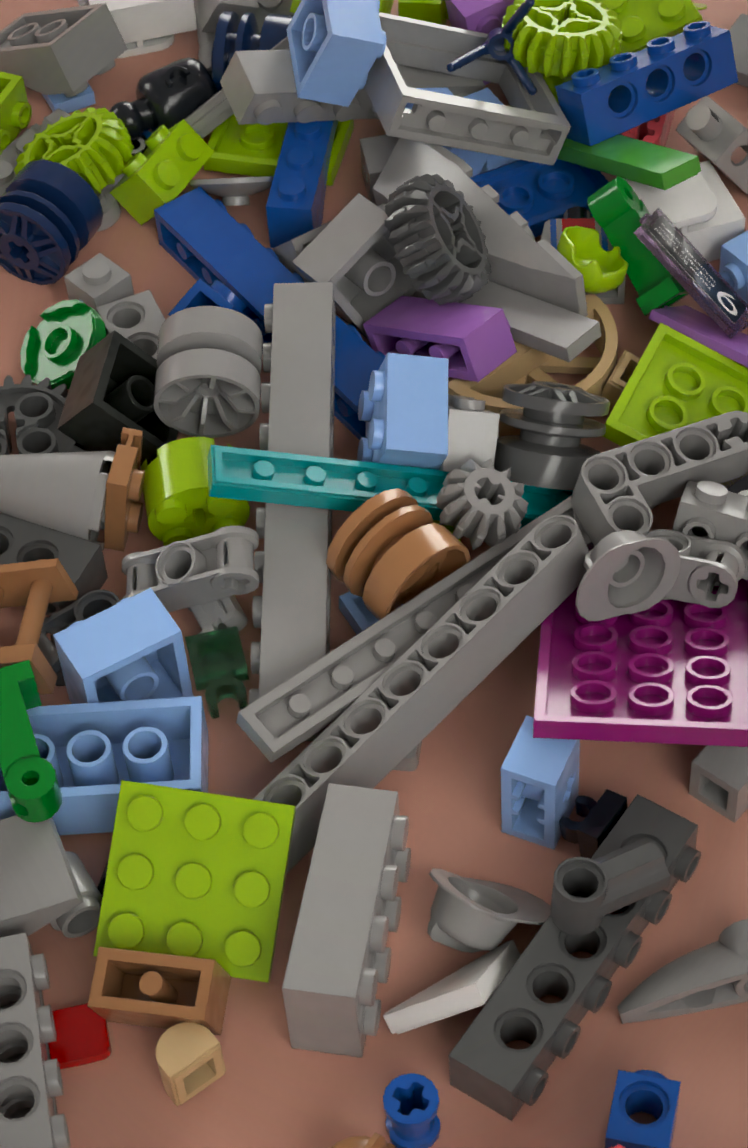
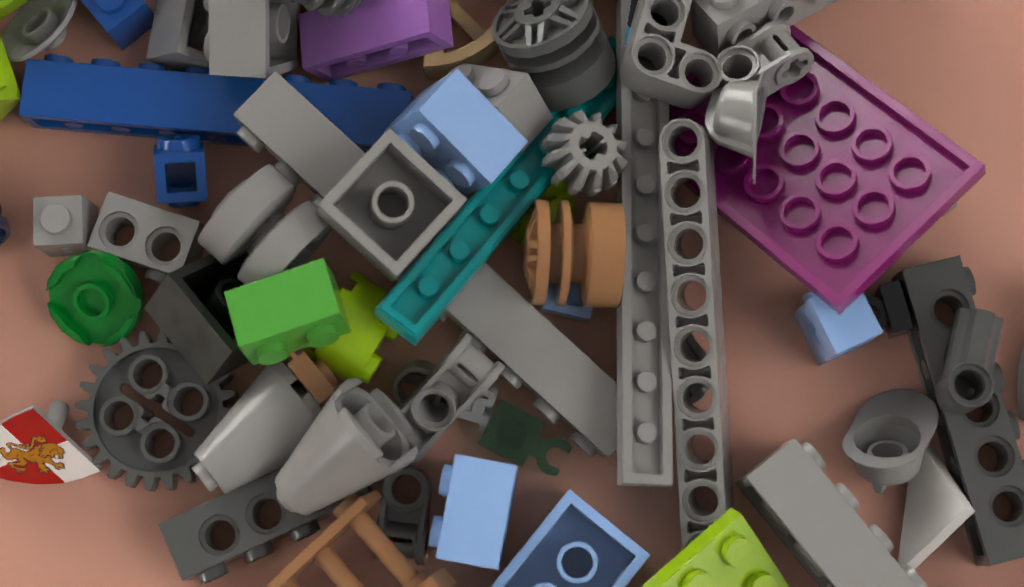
camera: 45 degrees left, 30 degrees up
(88, 521) = (346, 448): none -> light grey cone
(155, 405) = (287, 313): none -> bright green brick
(300, 397) = (390, 205): none -> light grey brick

